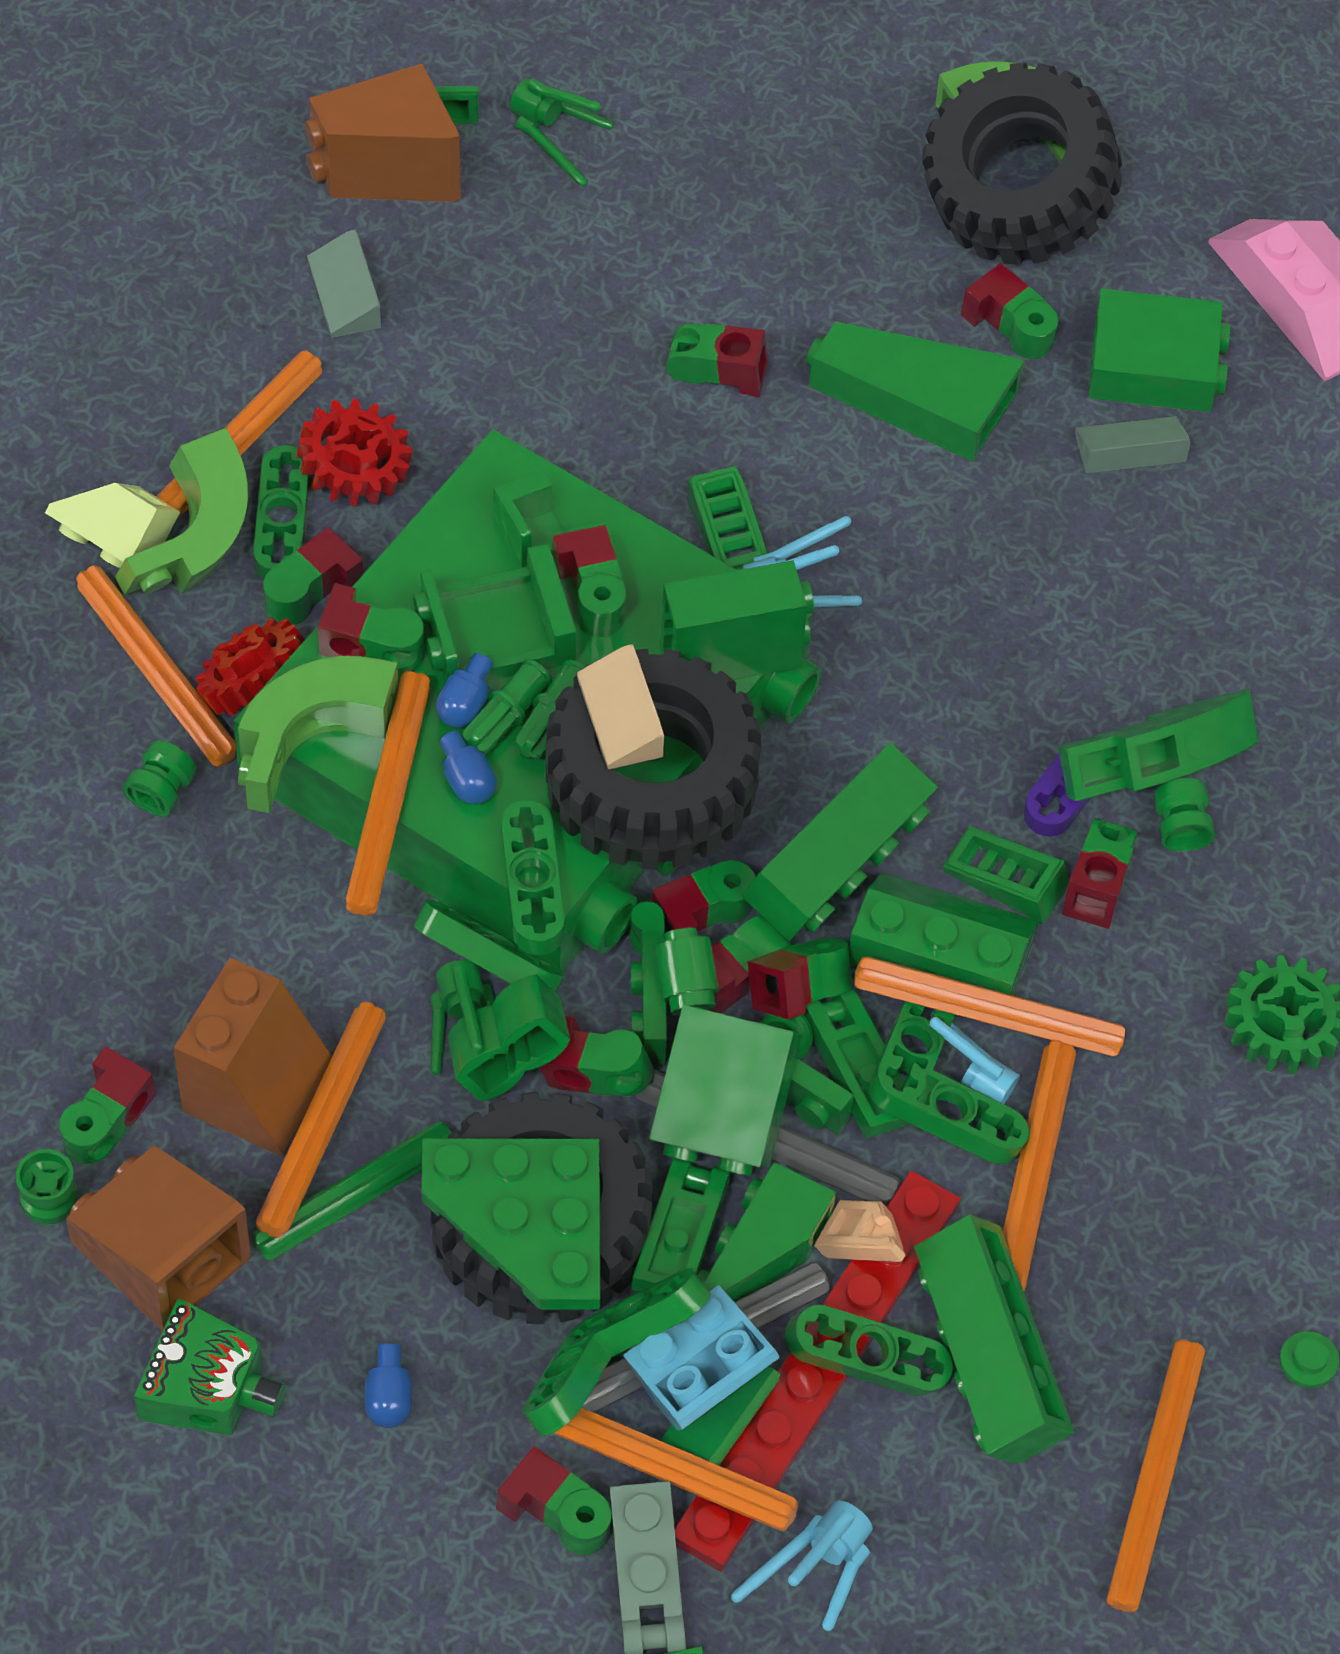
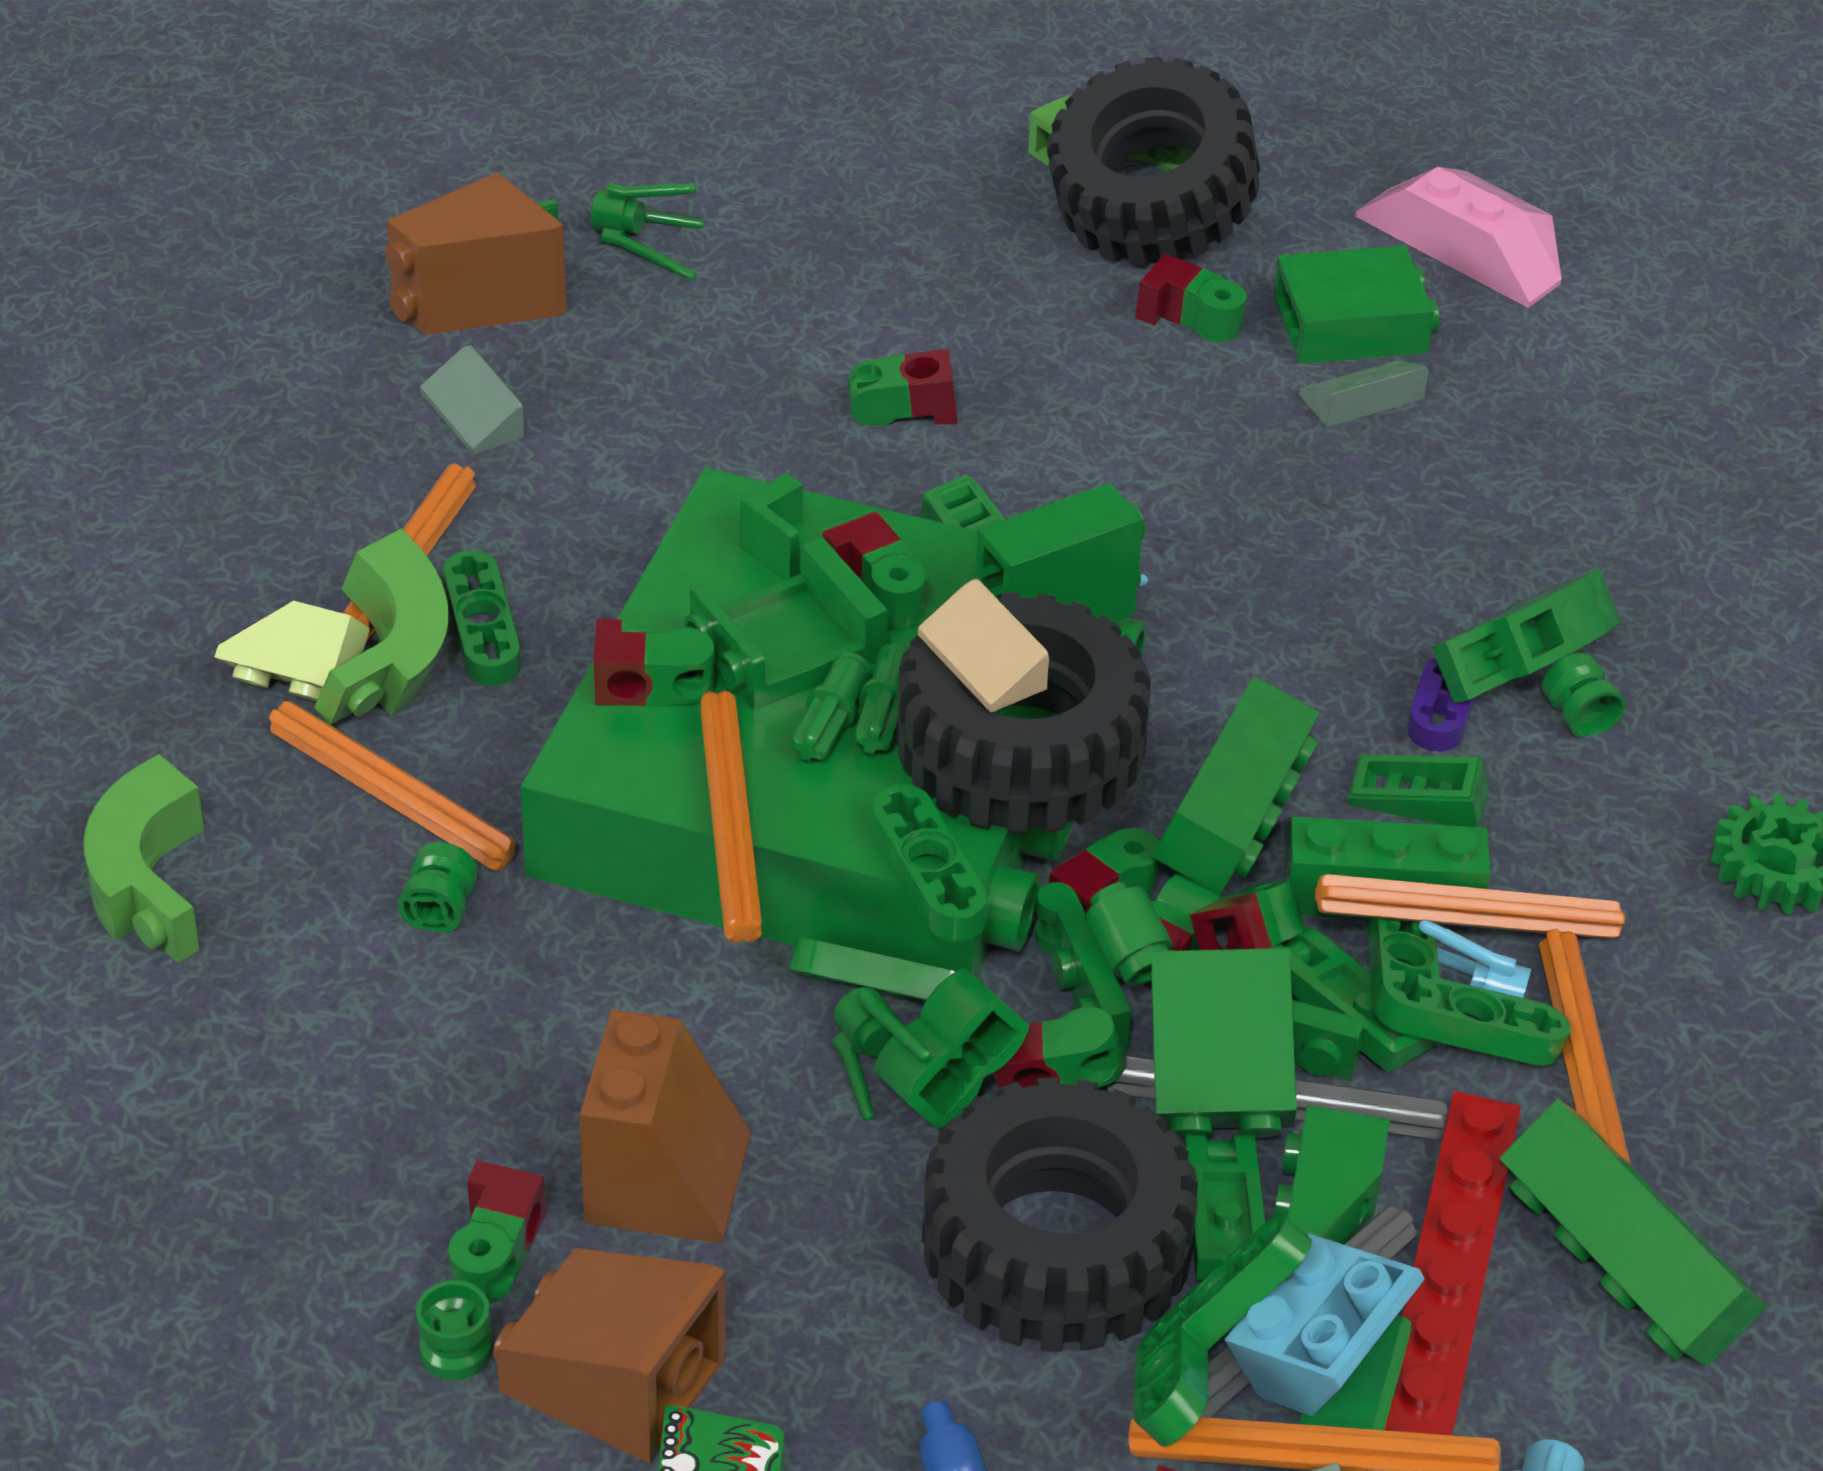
camera: 15 degrees left, 15 degrees down
(246, 664) = (501, 754): red gear -> none
(307, 701) = (610, 739): bright green arch -> none
(310, 576) = (539, 664): leg -> none
(320, 1120) = (760, 1189): orange axle -> none
(351, 1192) = (823, 1257): green axle -> none
(353, 452) = (544, 541): red gear -> none
(464, 693) = (780, 700): blue cylinder -> none
(467, 770) = (812, 774): blue cylinder -> none
(524, 1210) = (1058, 1197): green plate -> none
(861, 1233) = (1432, 1161): light nougat tile -> none
(903, 1378) = (1523, 1263): green beam -> none
(917, 384) = (1120, 375): green slope -> none
(1099, 873) = (1523, 767): dark red leg -> none

